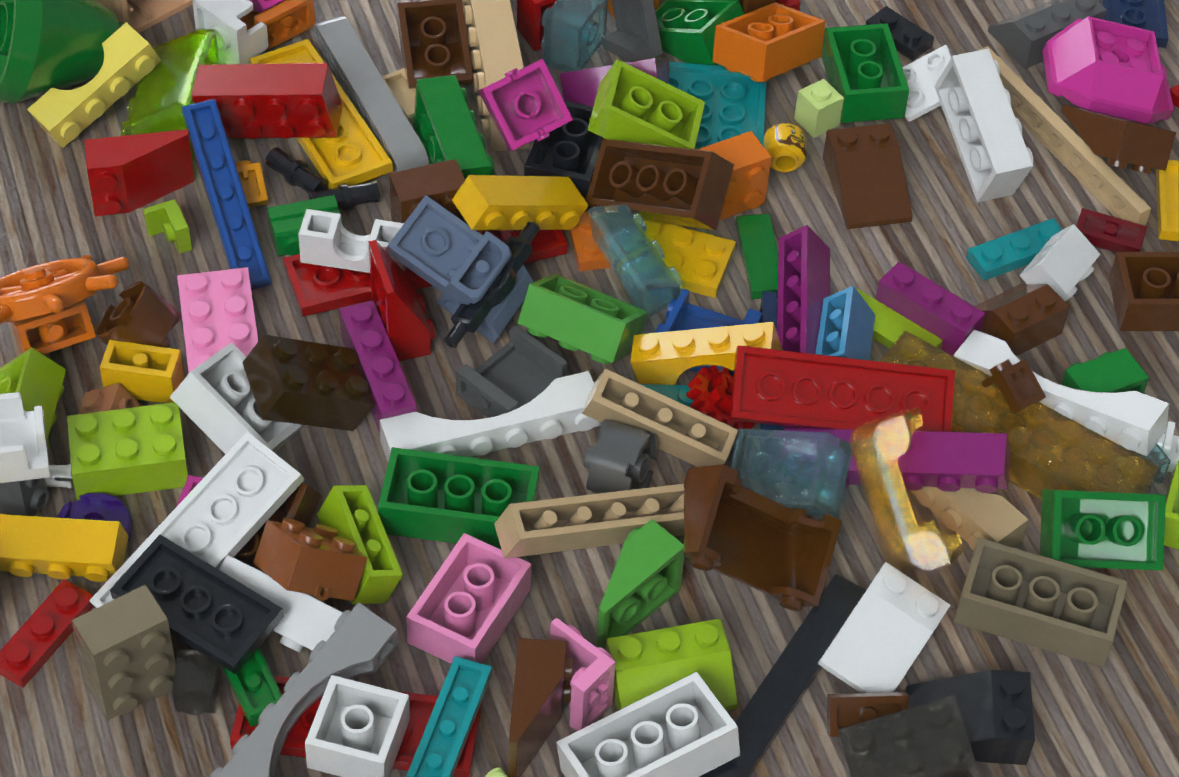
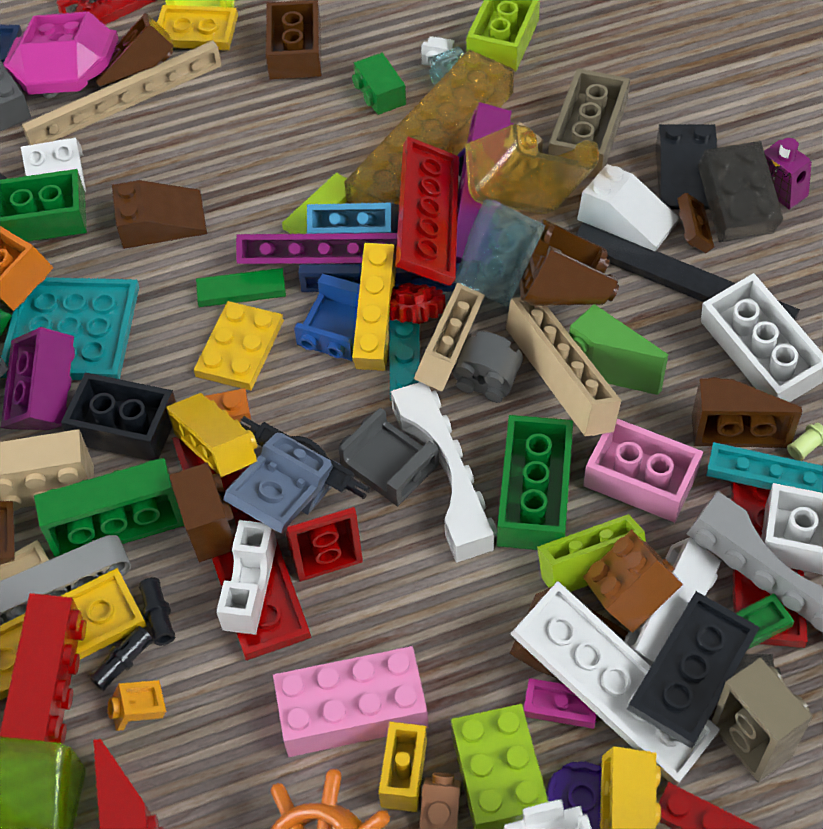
camera: 85 degrees left, 5 degrees up
(139, 318) = (360, 768): reddish brown brick -> none
(168, 219) = (192, 766): lime bracket -> none
(223, 403) = (455, 663): white slope -> none
(225, 191) = (166, 708): blue tile -> none
(286, 221) = (198, 640): green brick -> none
(308, 383) = (427, 602): dark brown brick -> none
(365, 332) = (386, 559): magenta brick -> none
(525, 105) = (96, 423): dark pink brick -> none
(581, 318) = (333, 394): bright green brick -> none
(591, 675) = (713, 364): bright pink bracket -> none
(634, 257) = (265, 359): clear light blue slope -> none
(644, 110) = (101, 342): lime brick -> none
(661, 182) = (189, 331): reddish brown brick -> none
(666, 655) = (676, 328): lime slope -> none
(749, 175) = (166, 295): orange brick -> none
(786, 147) = (122, 262): yellow head -> none
(818, 108) = (76, 240): yellowish green brick -> none
(929, 306) = (308, 174): magenta brick -> none
(984, 125) = (127, 121): white brick -> none
(1011, 250) = (237, 128): teal plate -> none
(1016, 384) = (410, 108): reddish brown bracket -> none
(1024, 316) = (312, 126): reddish brown slope -> none
(1062, 262) = (265, 97): white brick -> none
(1103, 529) = (528, 85): green slope -> none
(1111, 232) = (225, 73): dark red plate -> none
(1122, 417) = (433, 57): white arch -> none

